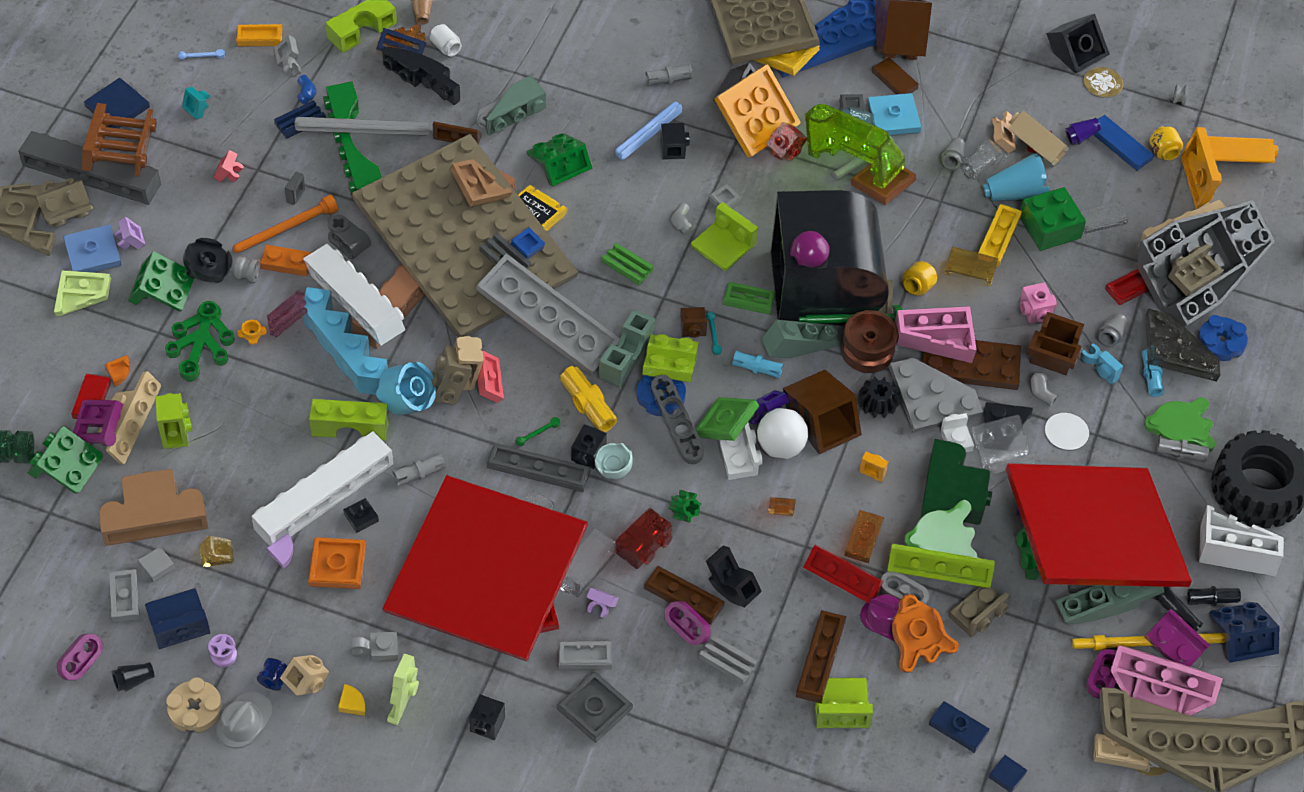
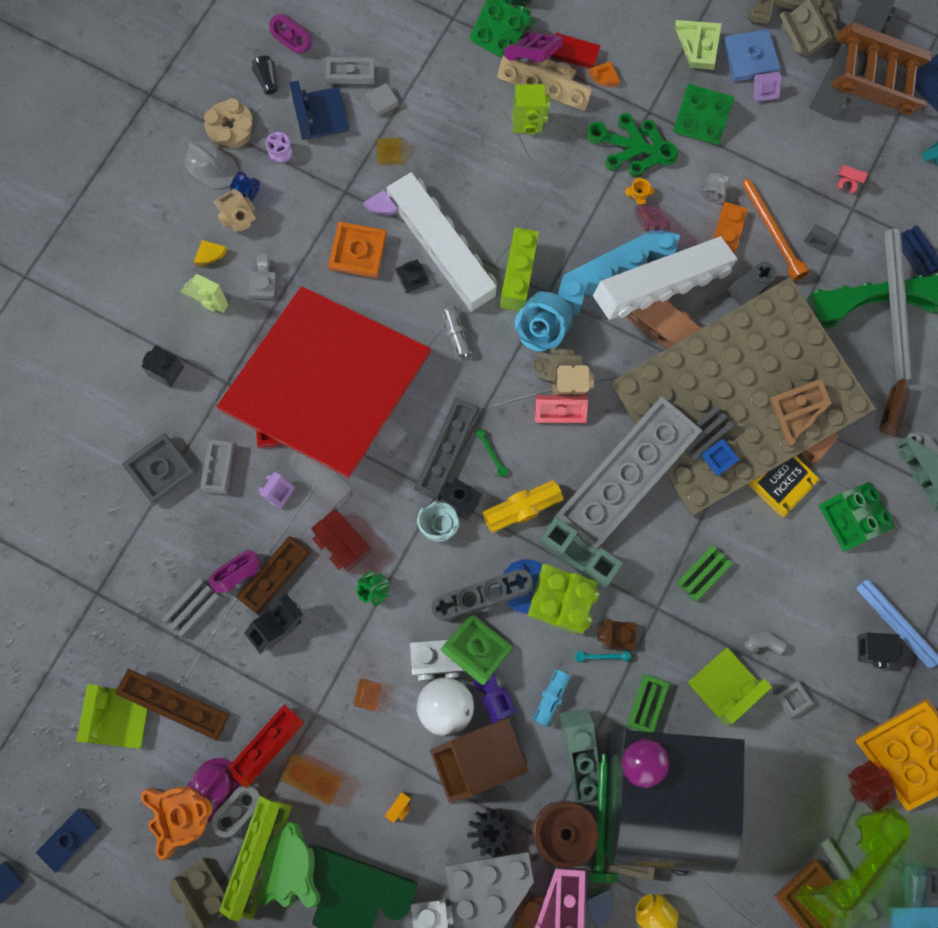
camera: 95 degrees right, 20 degrees up
(152, 509) = (440, 94): medium nougat brick -> none
(202, 270) = (738, 141): black plate -> none

